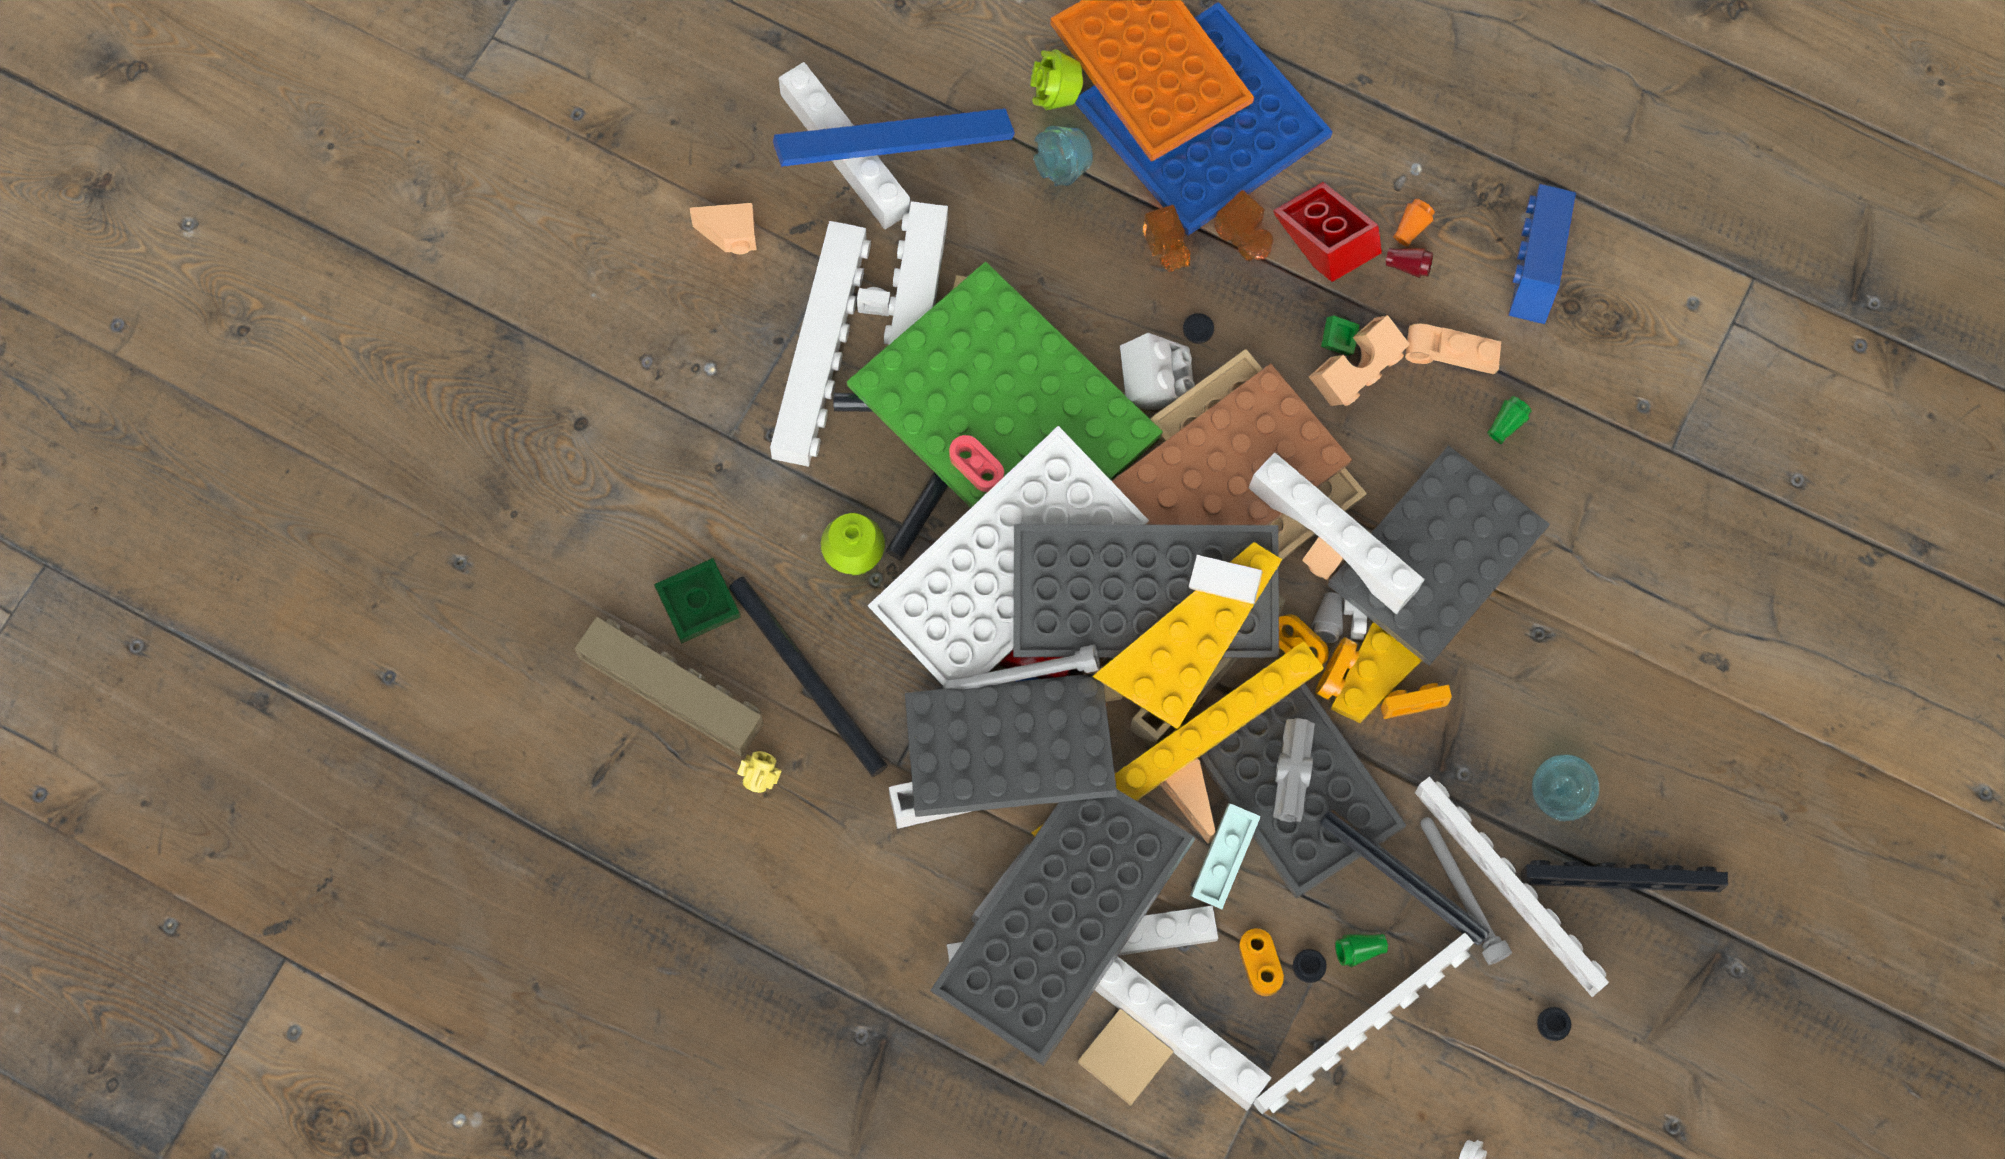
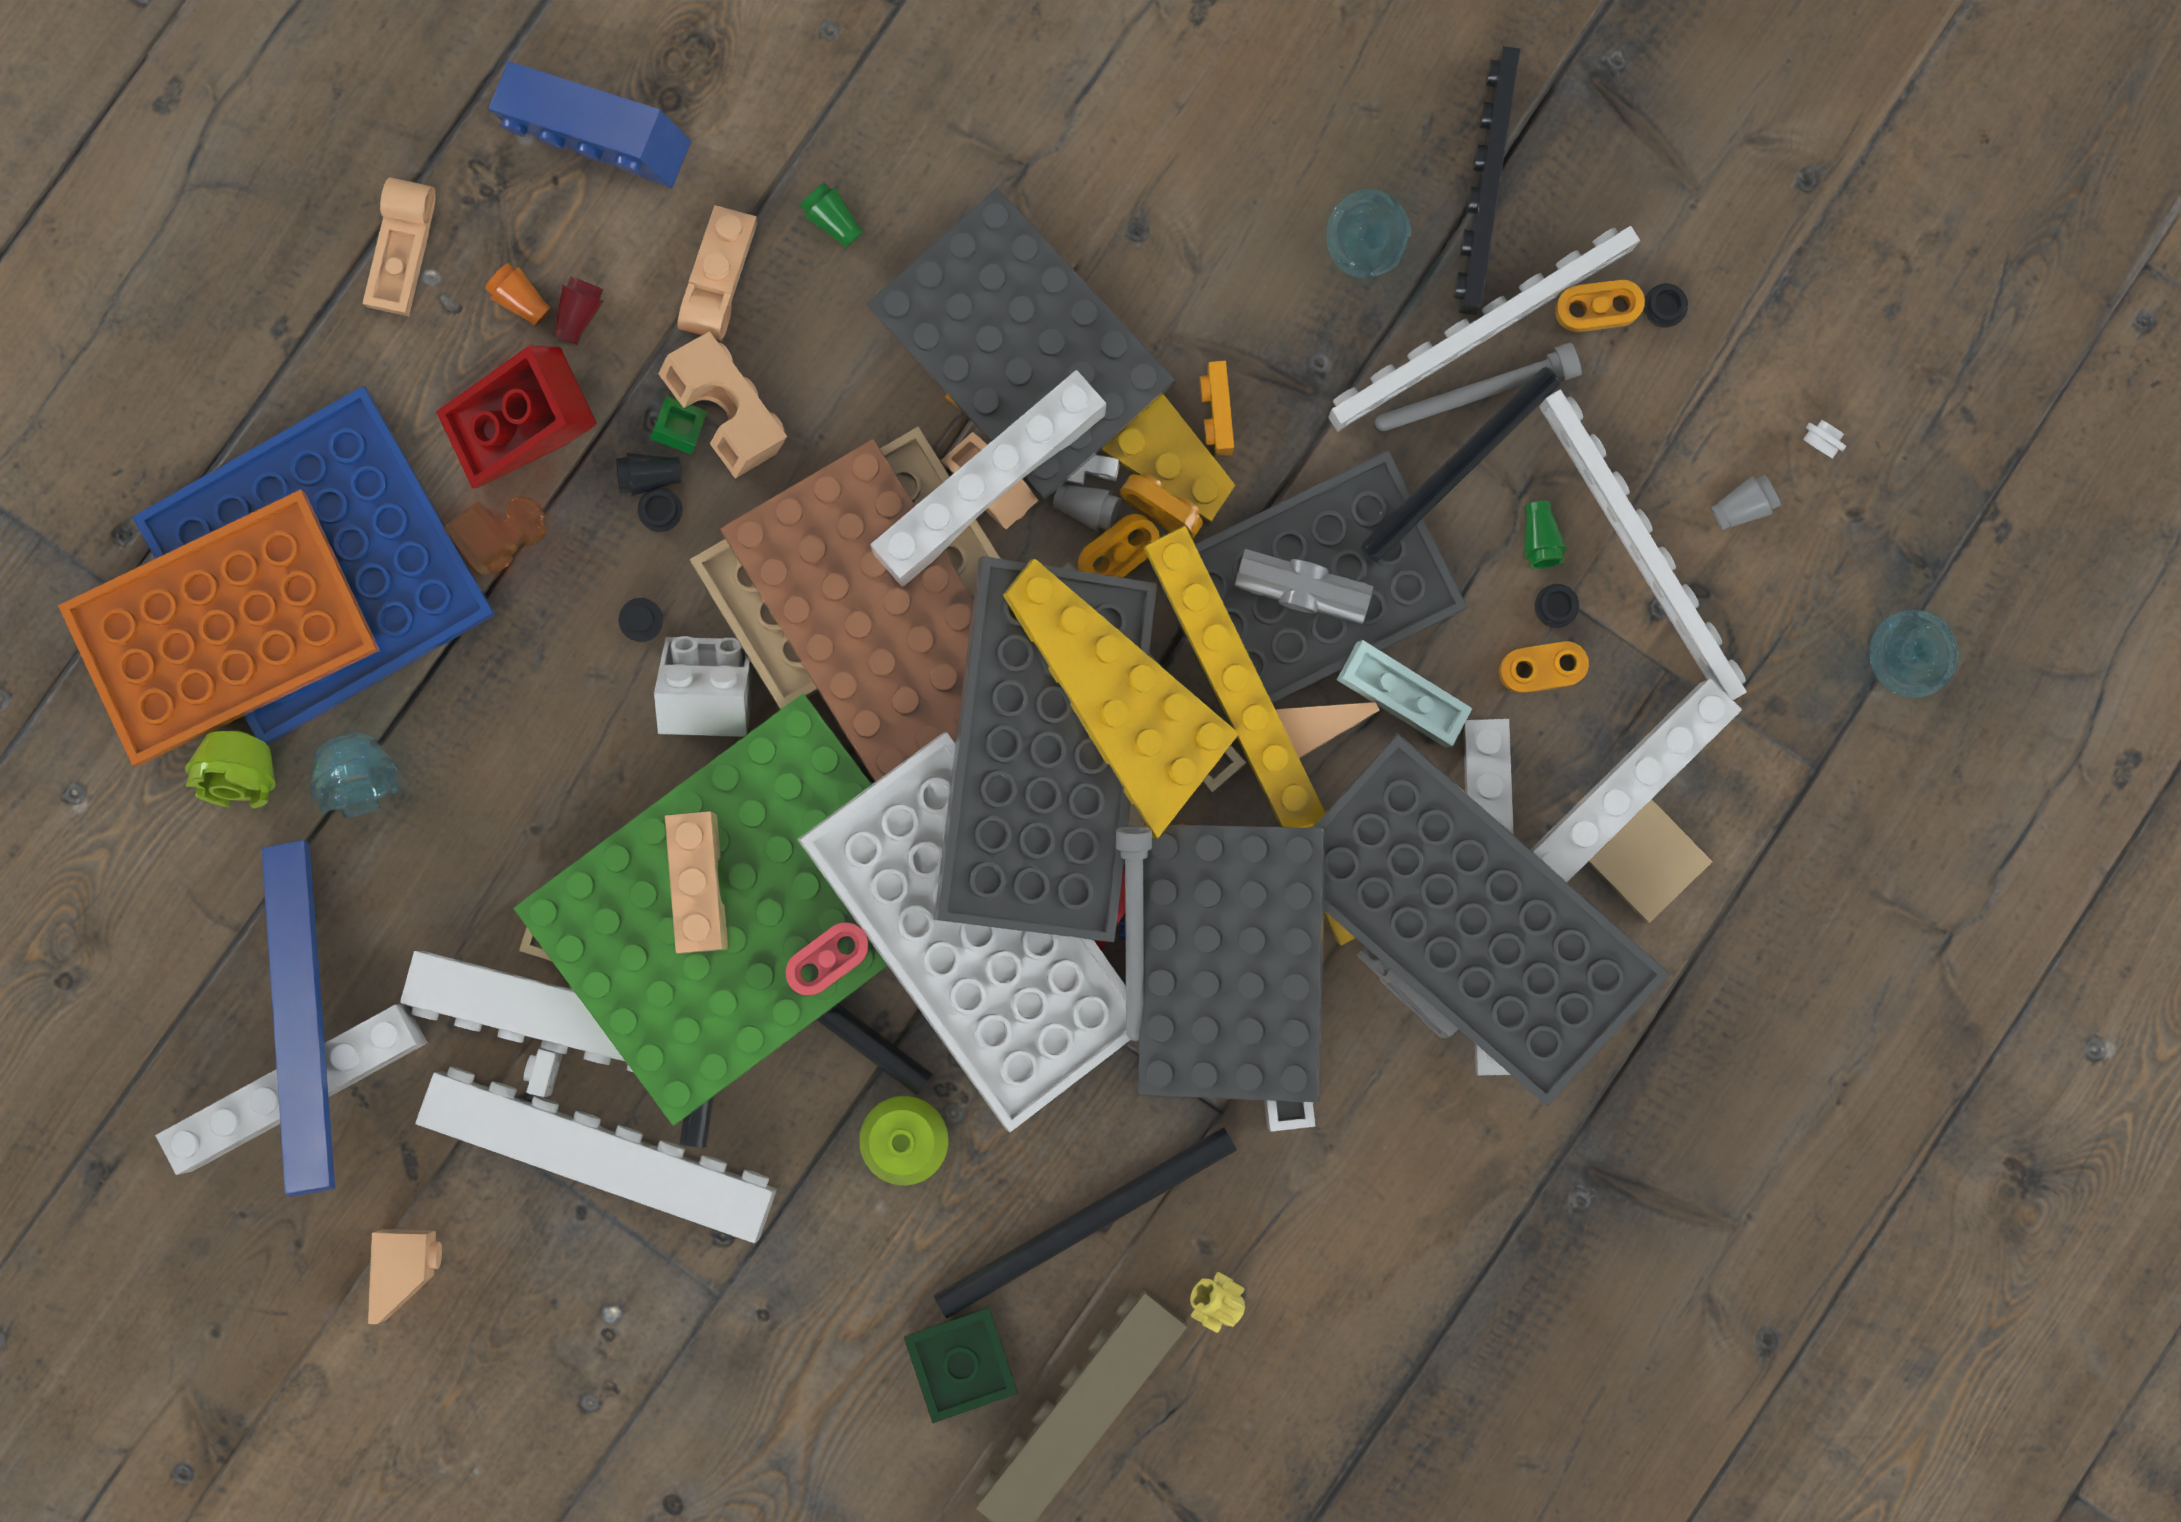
camera: 80 degrees left, 15 degrees up
(1038, 363) = (694, 882): none -> light nougat arch
(1165, 237) = (495, 644): clear orange brick -> none
(1225, 579) = (1057, 640): white tile -> none
(1278, 332) = (660, 510): none -> black plate
(1302, 318) = (646, 472): none -> black cone
(1412, 1101) = (1746, 503): none -> light grey cone
(1434, 144) = (400, 245): none -> light nougat plate
(1544, 973) = (1598, 305): none -> light orange plate

